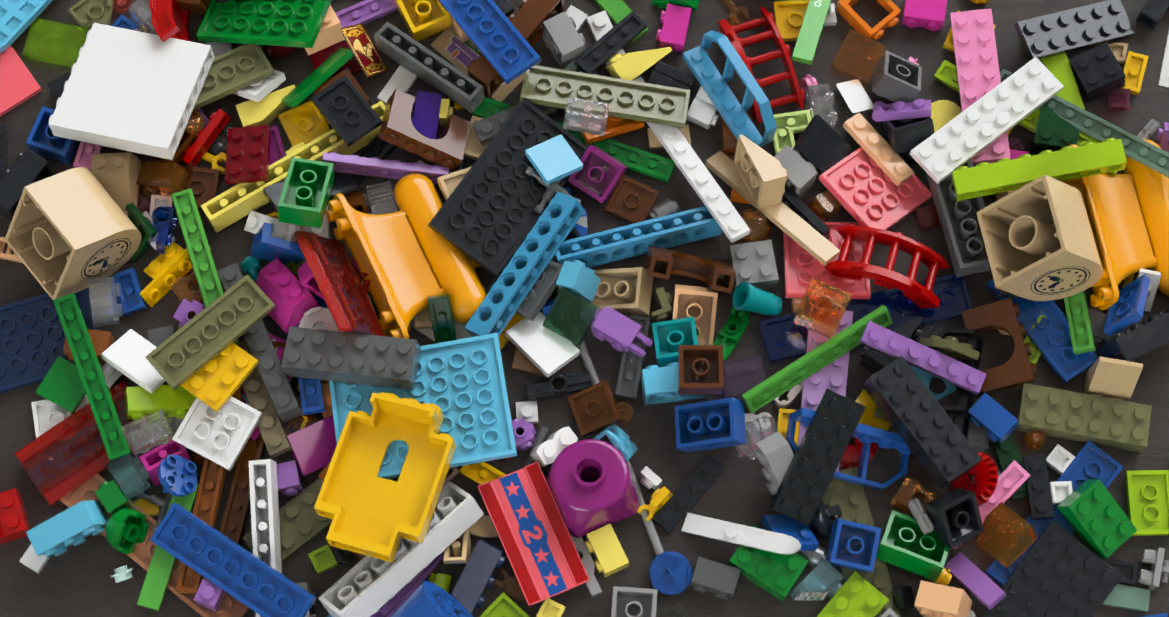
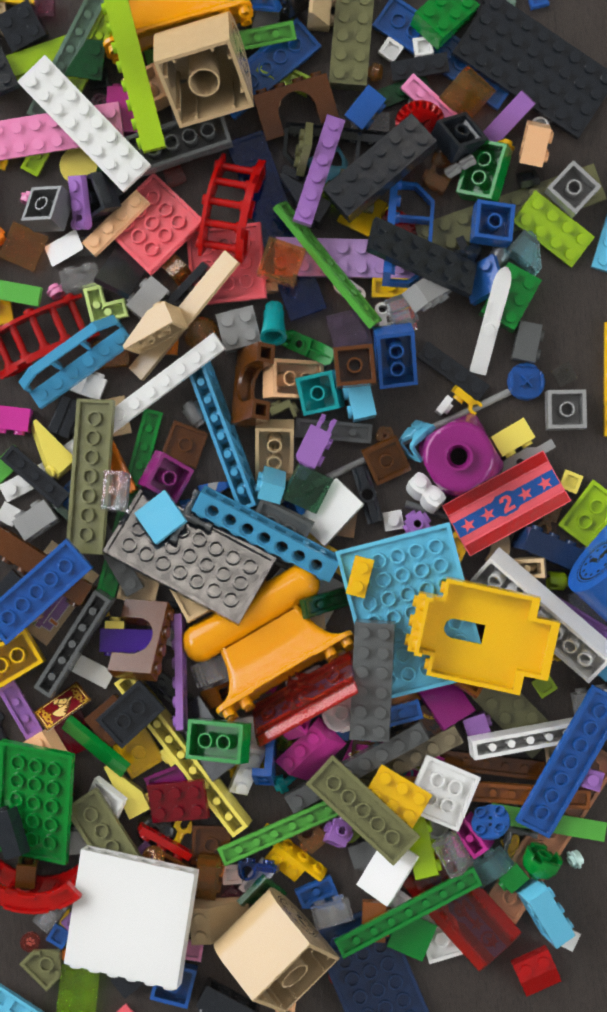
camera: 90 degrees left, 15 degrees up
(466, 355) = (360, 576): none -> yellow plate

